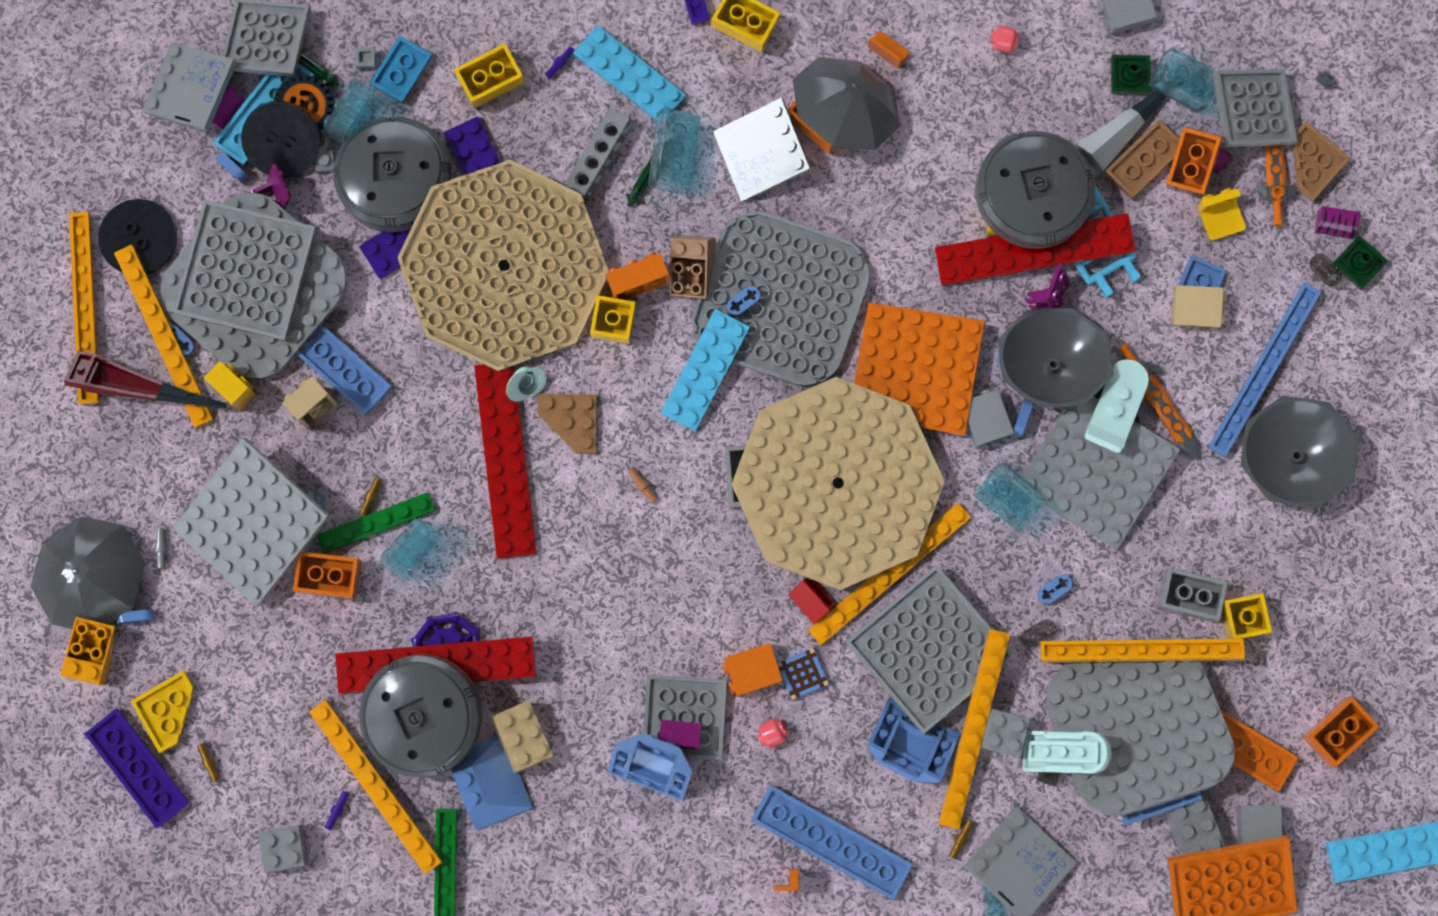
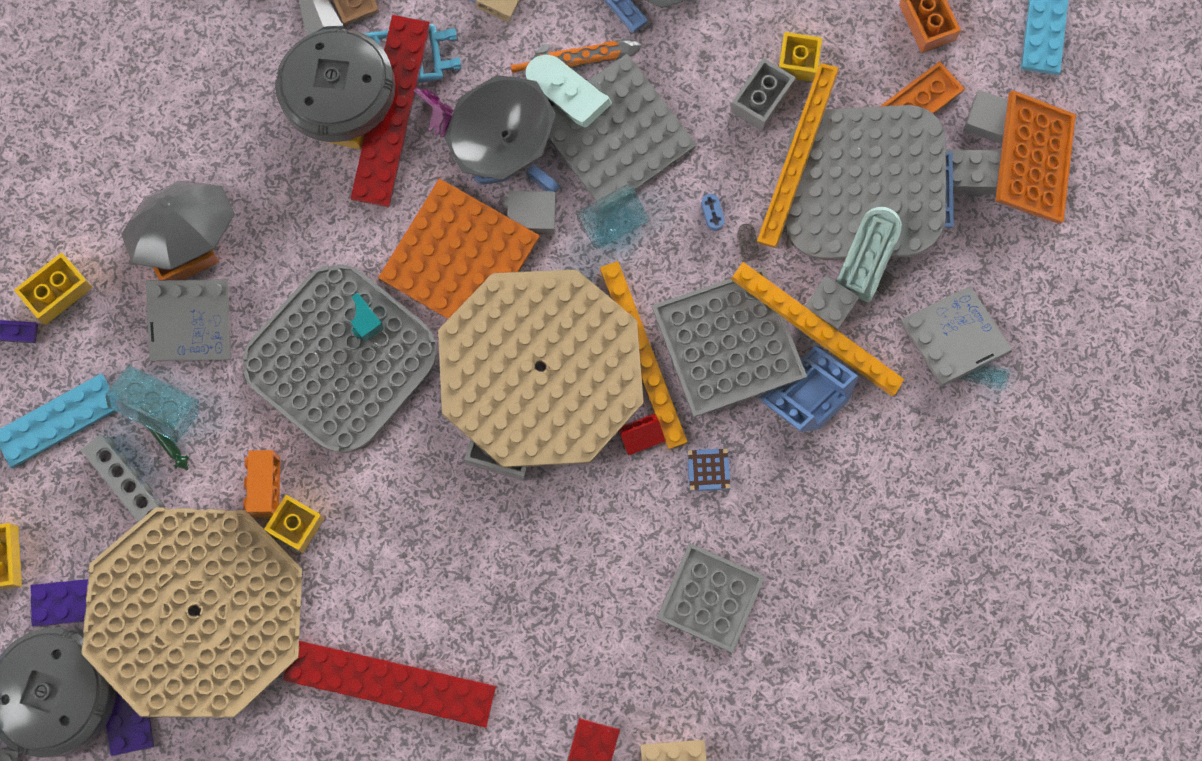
camera: 70 degrees left, 5 degrees down
(526, 383) = (322, 633): light aqua piece -> none
(559, 62) = (13, 484): dark purple bar -> none
(571, 418) = (375, 602): medium nougat plate -> none
(642, 485) = (469, 556): nougat bar -> none
(652, 765) = (748, 643): medium blue slope -> none
(682, 734) = (727, 606): magenta brick -> none
(691, 265) = (273, 428): medium nougat slope -> none
(705, 370) = (380, 453): medium azure plate -> none
(740, 298) = (323, 392): medium blue beam -> none
(752, 670) = (688, 515): orange brick -> none
(772, 733) = (755, 518): coral head -> none
(793, 882) = (906, 550): orange panel -> none
(820, 308) = (365, 321): none -> teal arch
(832, 842) = (877, 501): medium blue plate -> none
(888, 49) = (142, 170): orange panel -> none
(961, 839) = (914, 381): pearl gold bar -> none
(1004, 39) = (180, 63): coral head -> none

